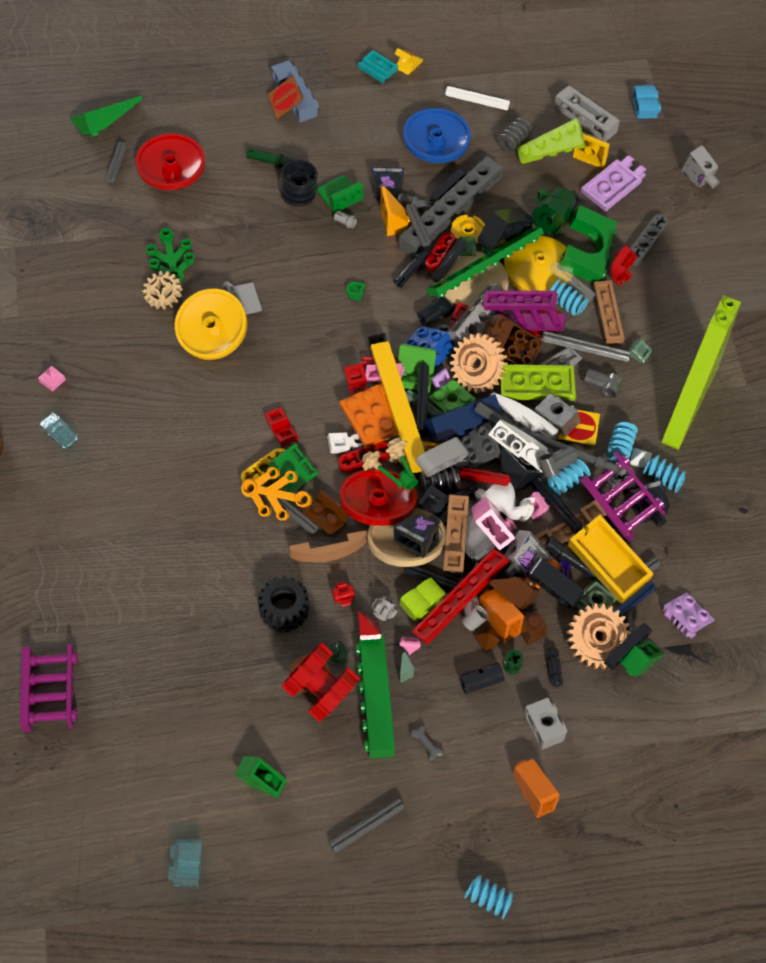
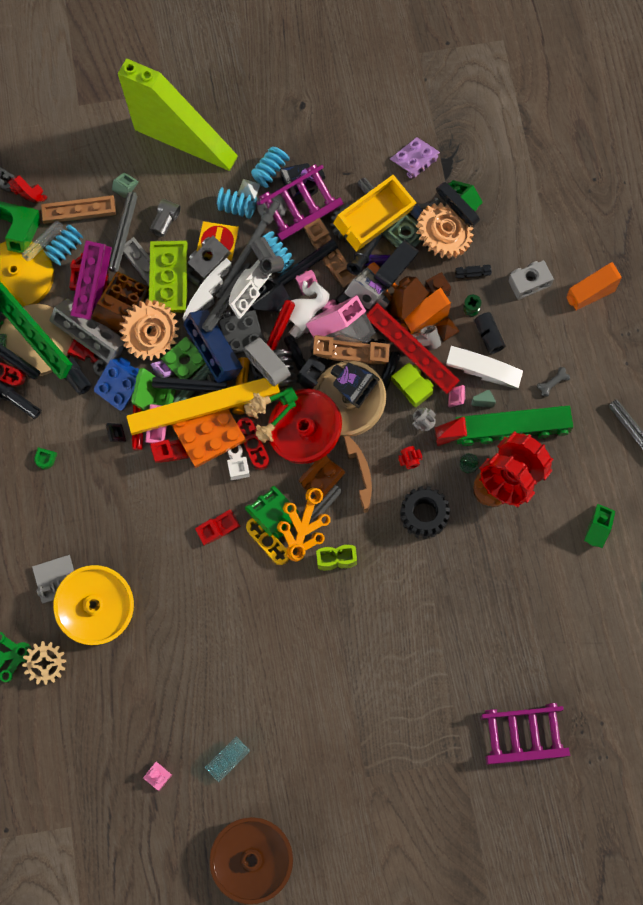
camera: 85 degrees left, 15 degrees up
(241, 521) = (342, 557): none -> lime brick
(441, 670) = (485, 367): none -> white slope

